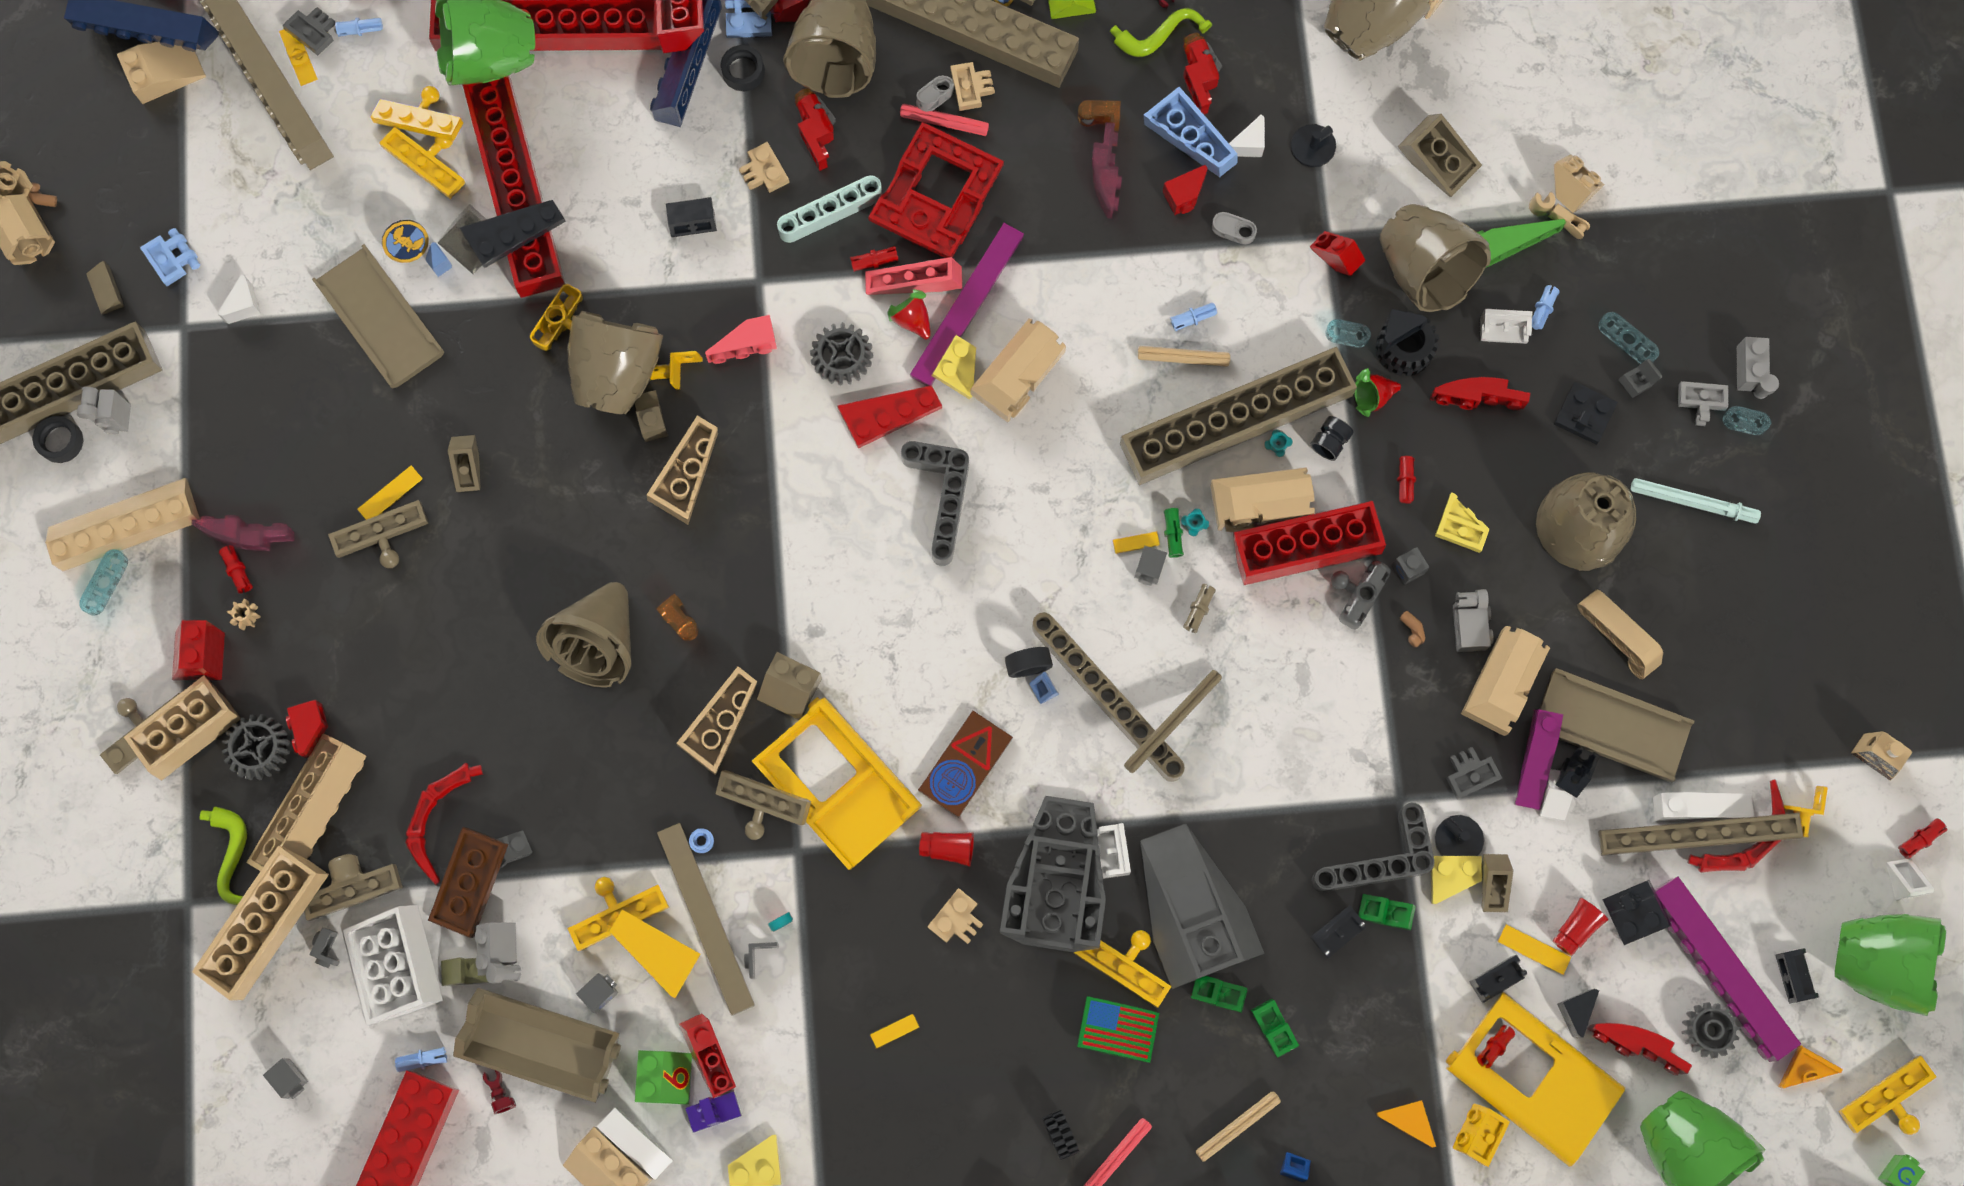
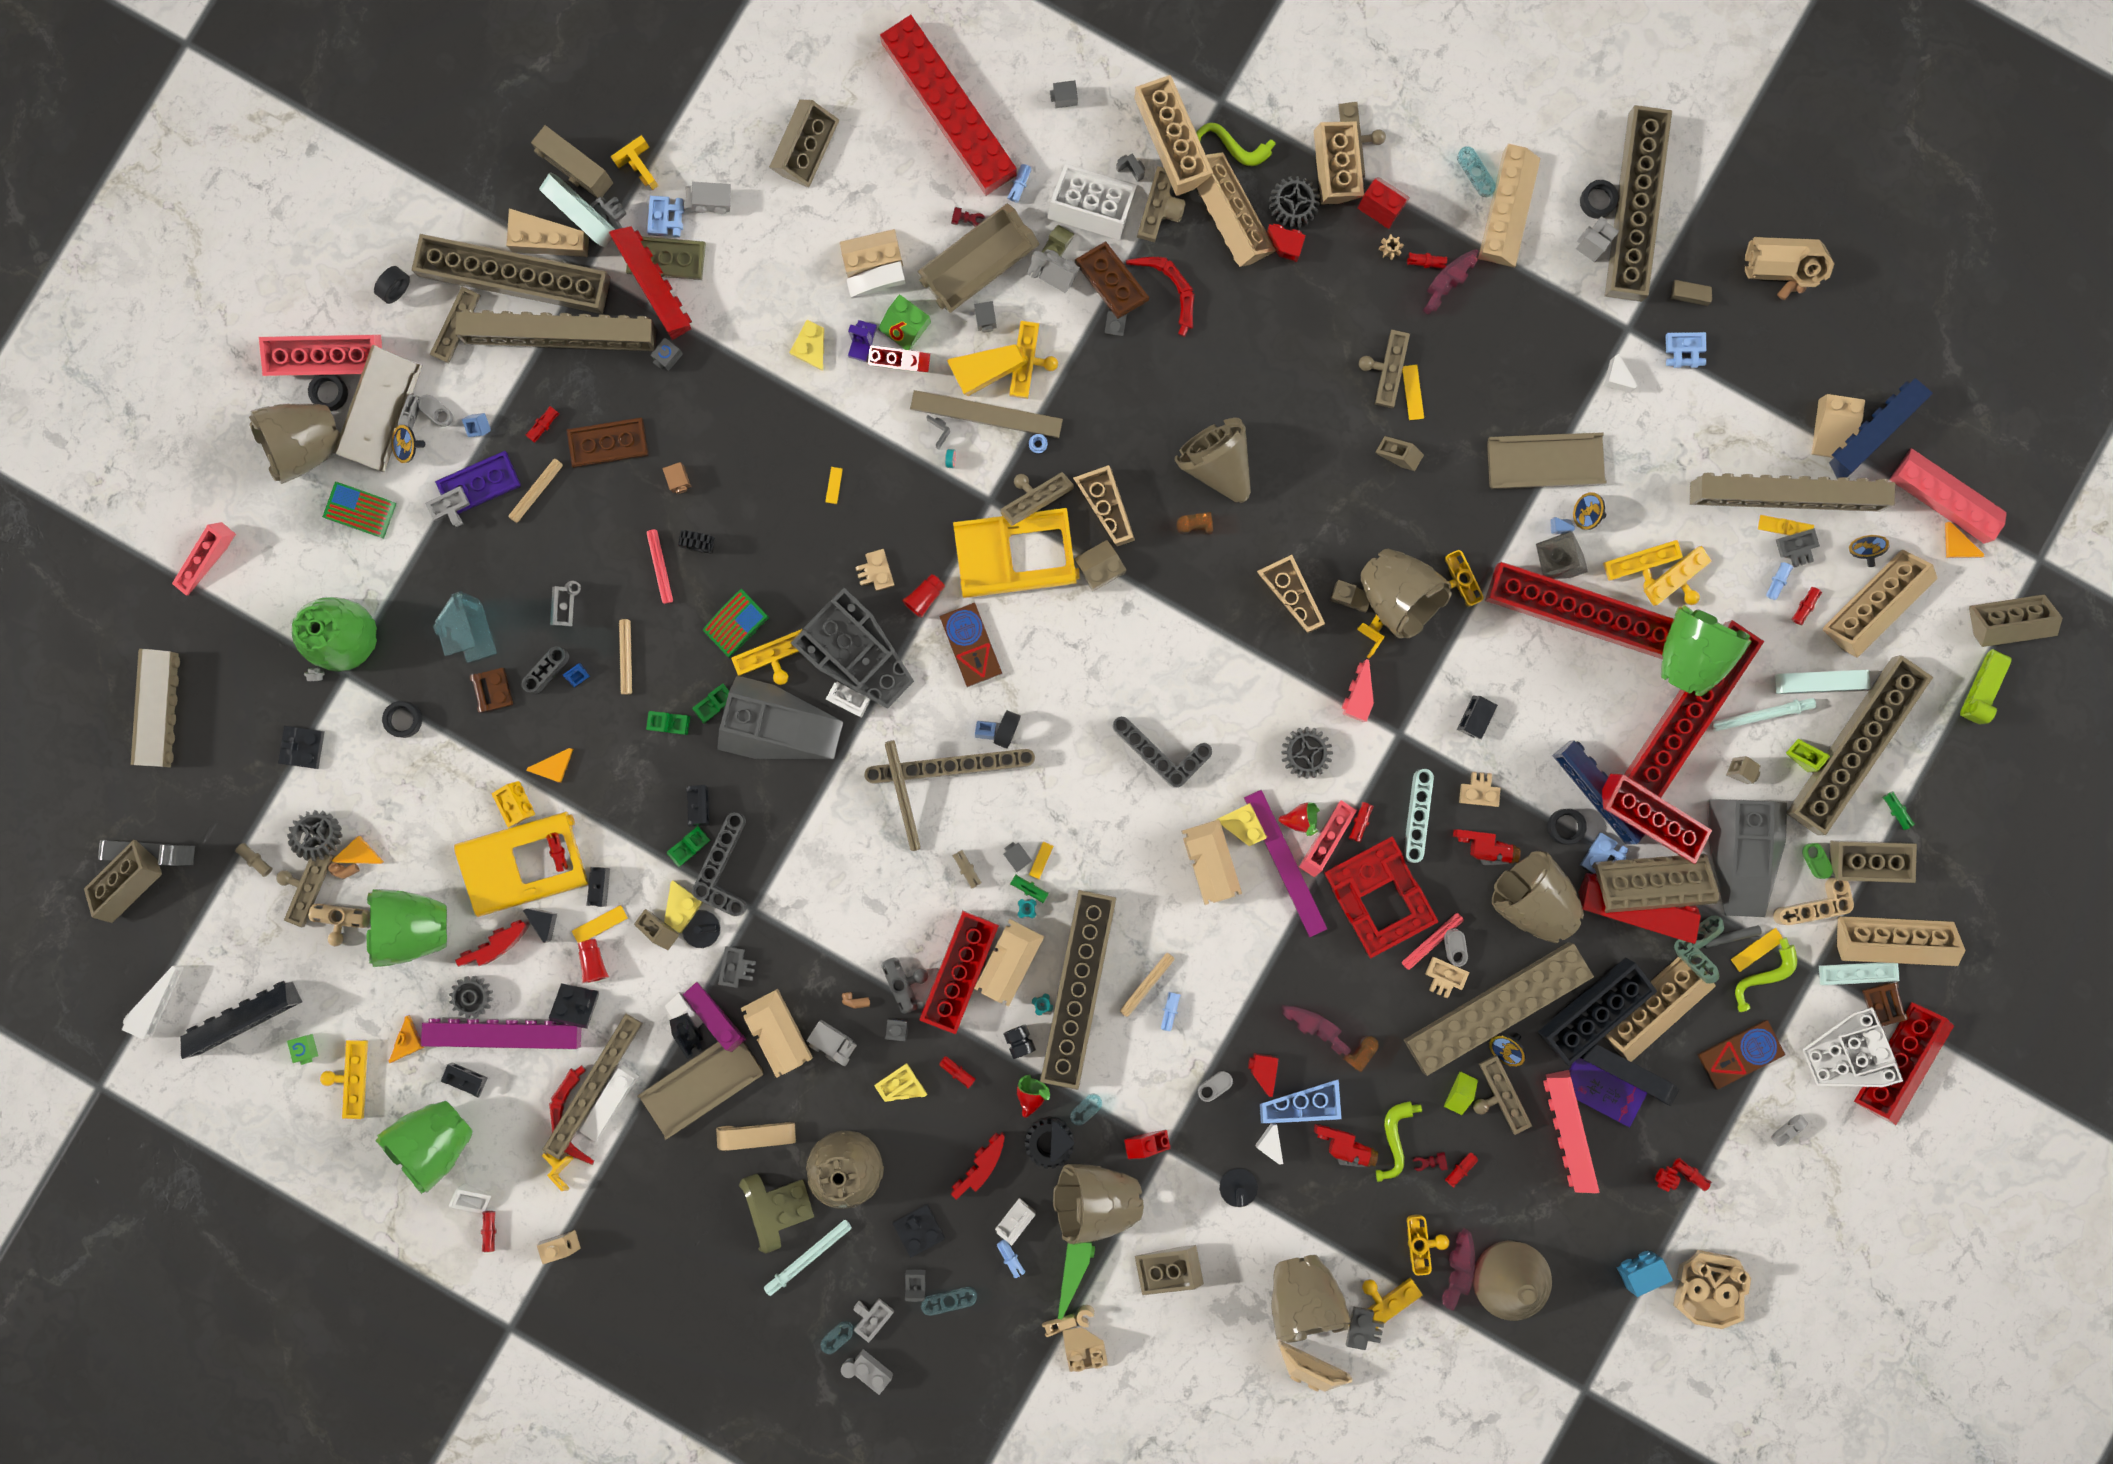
camera: 125 degrees right, 10 degrees up
(508, 232) = (1544, 584): black wing -> none
(882, 415) = (1245, 750): red wing -> none
(1675, 562) = (775, 1209): none -> olive piece

